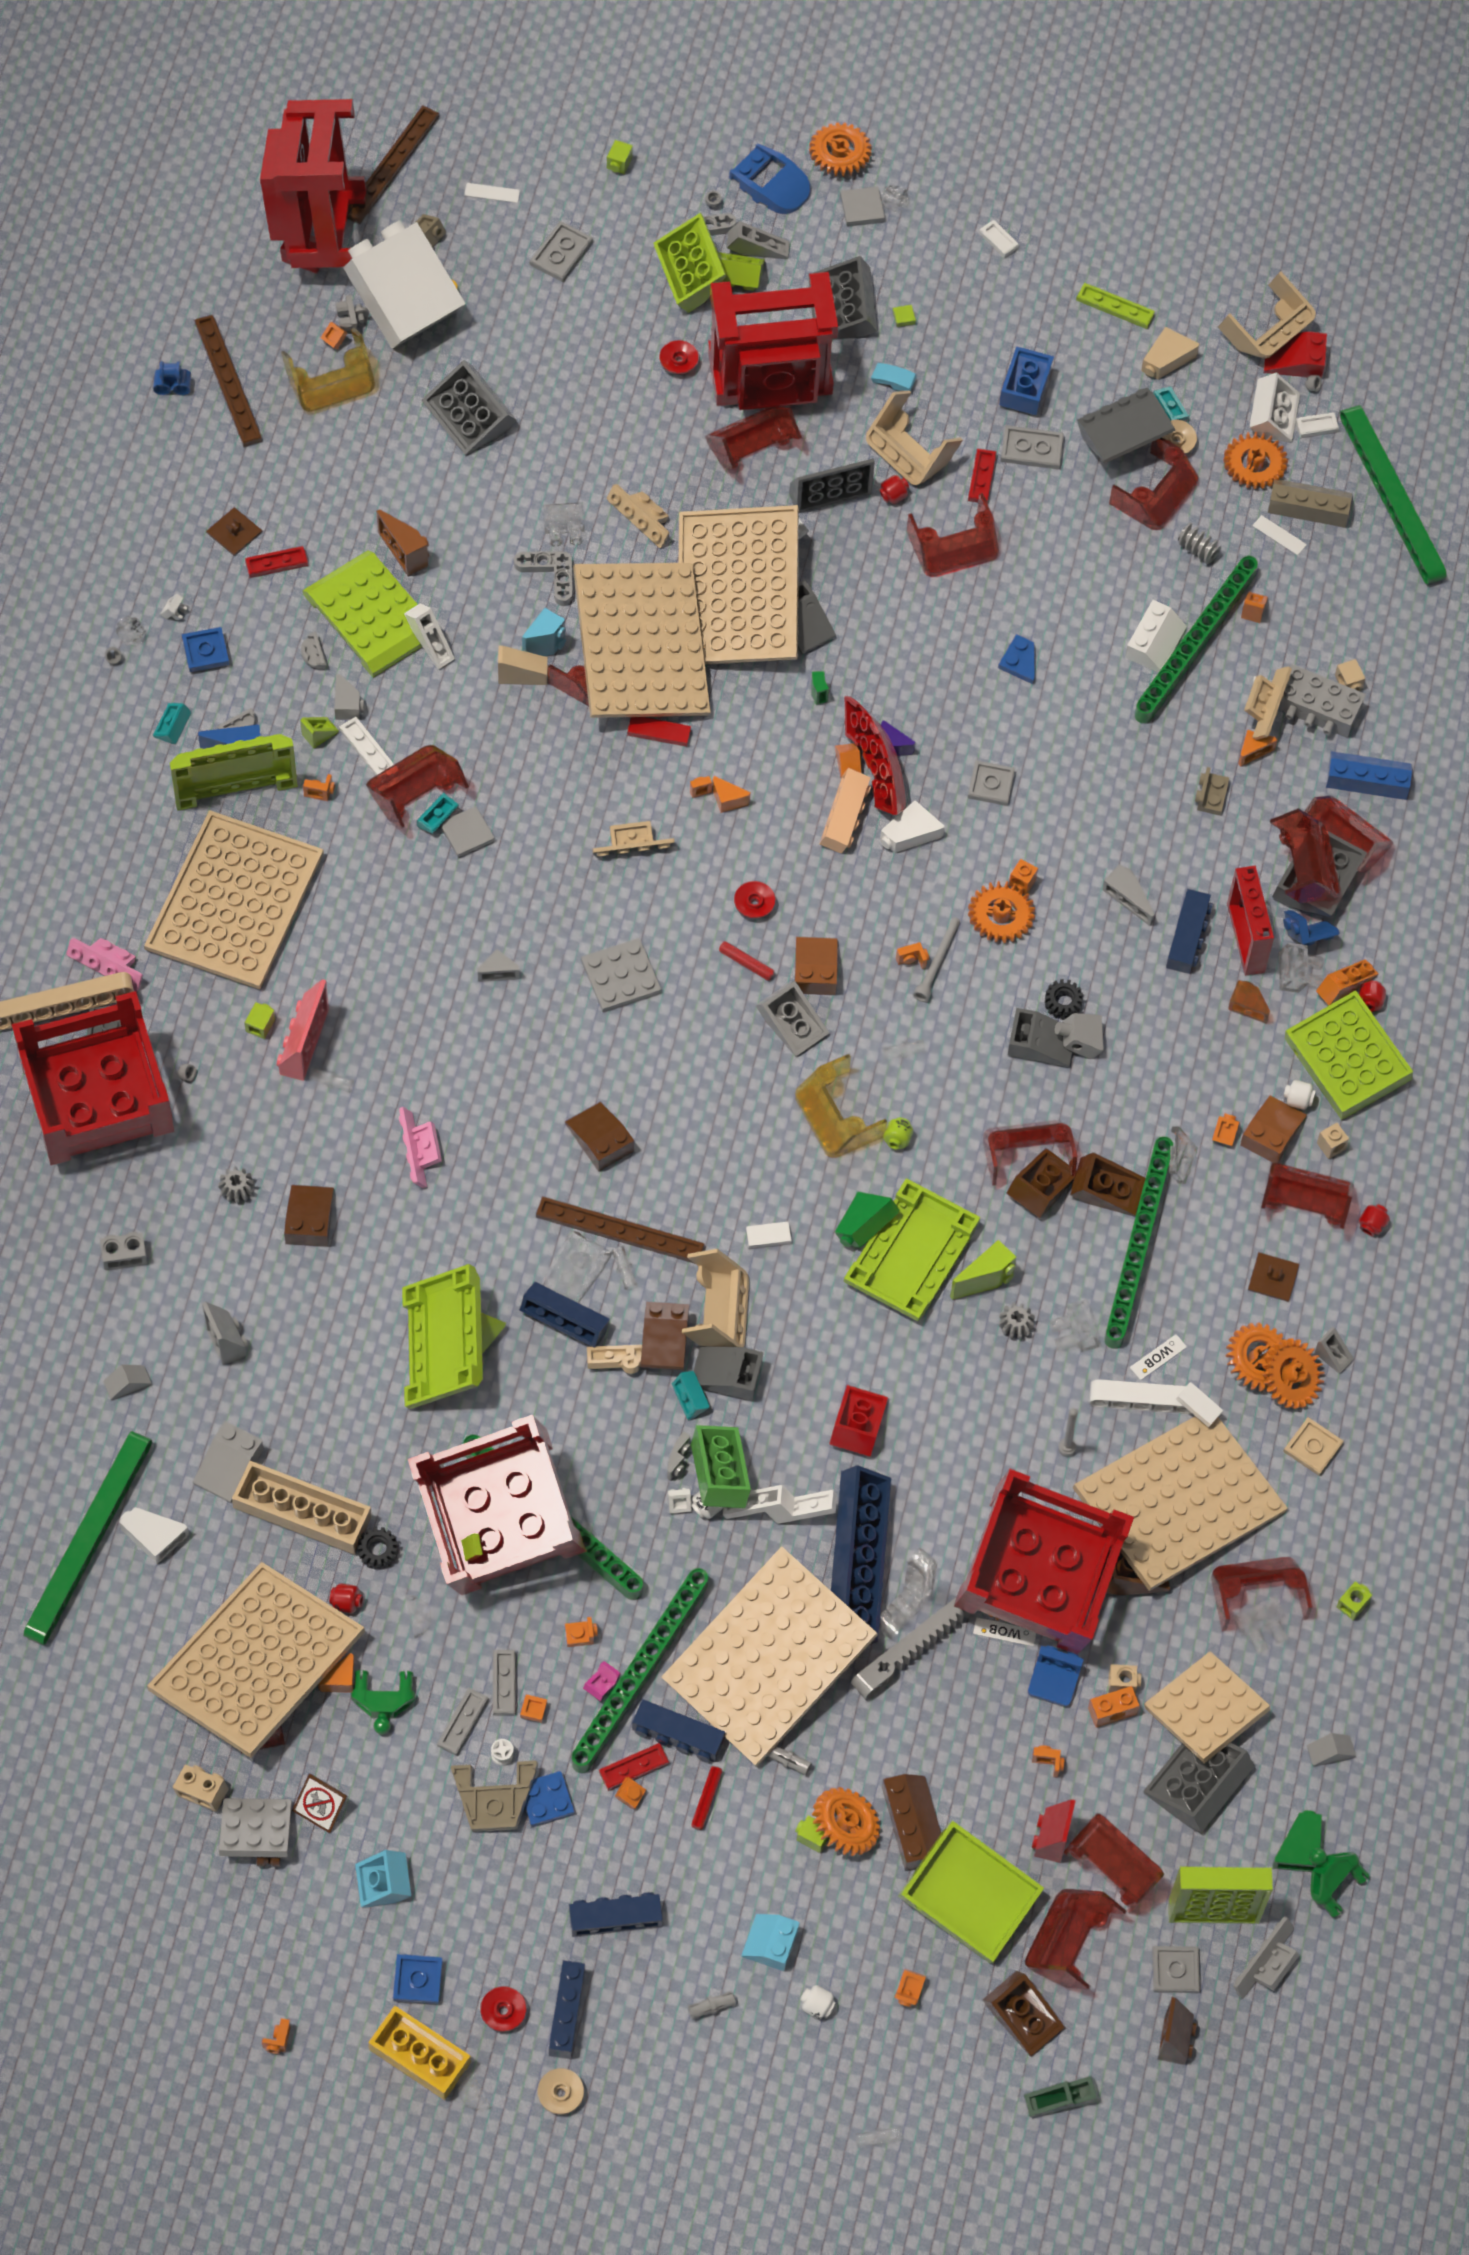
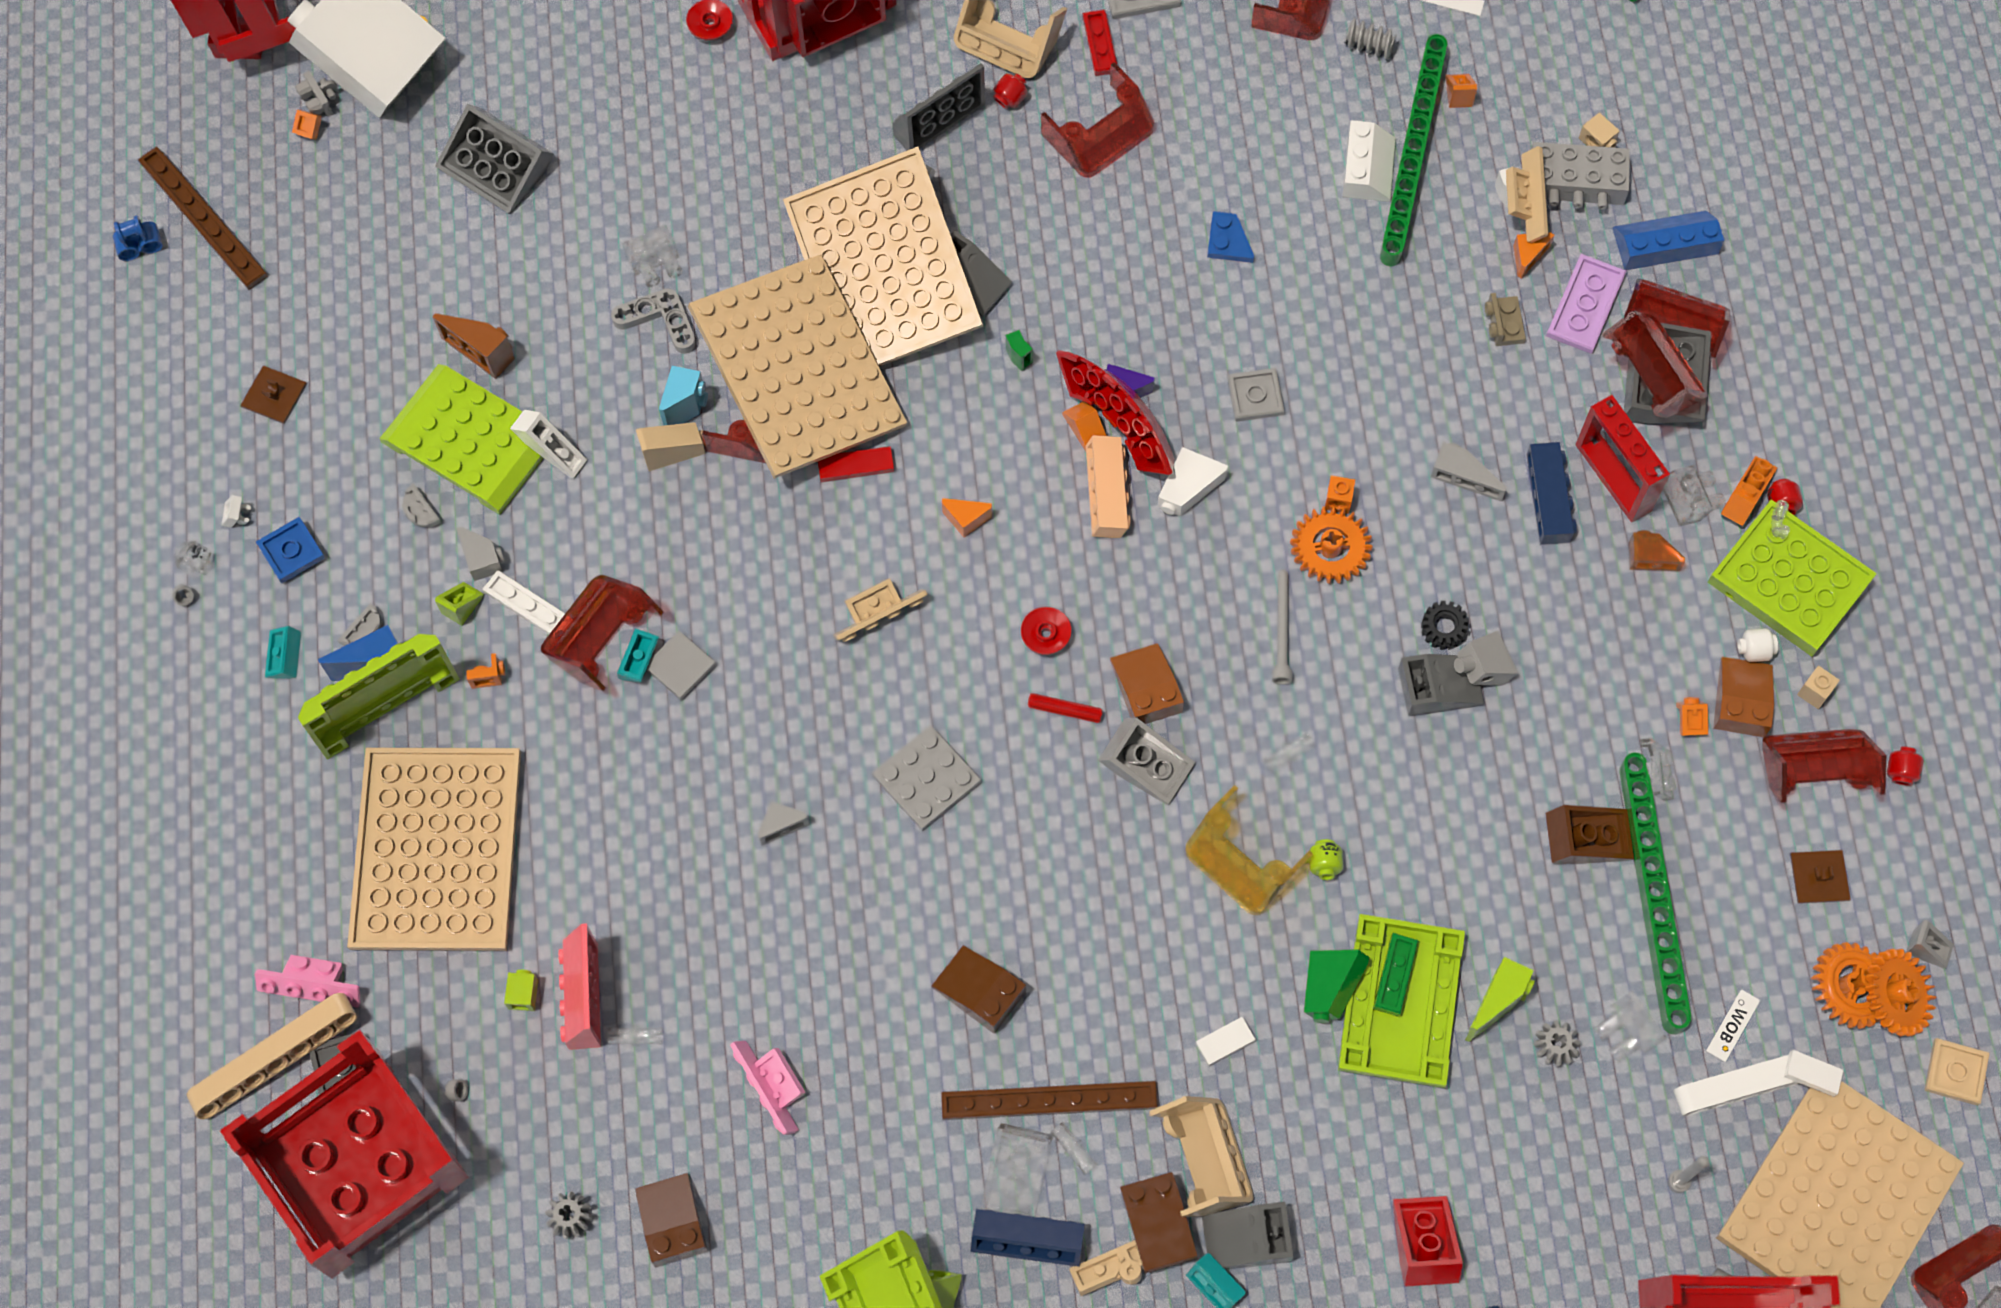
camera: 15 degrees left, 5 degrees up
(276, 561) = (336, 414): red tile -> none
(334, 386) = (329, 182): clear yellow windscreen -> none
(641, 512) = (737, 214): tan bracket -> none
(700, 786) = (929, 515): orange plate -> none
(753, 433) = (827, 79): clear red windscreen -> none
(912, 952) = (1249, 633): orange bracket -> none
(915, 1230) = (1395, 974): none -> green tile
(1025, 1135) = (1445, 823): clear red windscreen -> none
(1041, 1183) = (1514, 859): reddish brown slope -> none
(1288, 792) = (1586, 303): none -> lavender tile
(1307, 934) = (1684, 447): blue bracket -> none
(1352, 1004) = (1777, 520): none -> clear arm

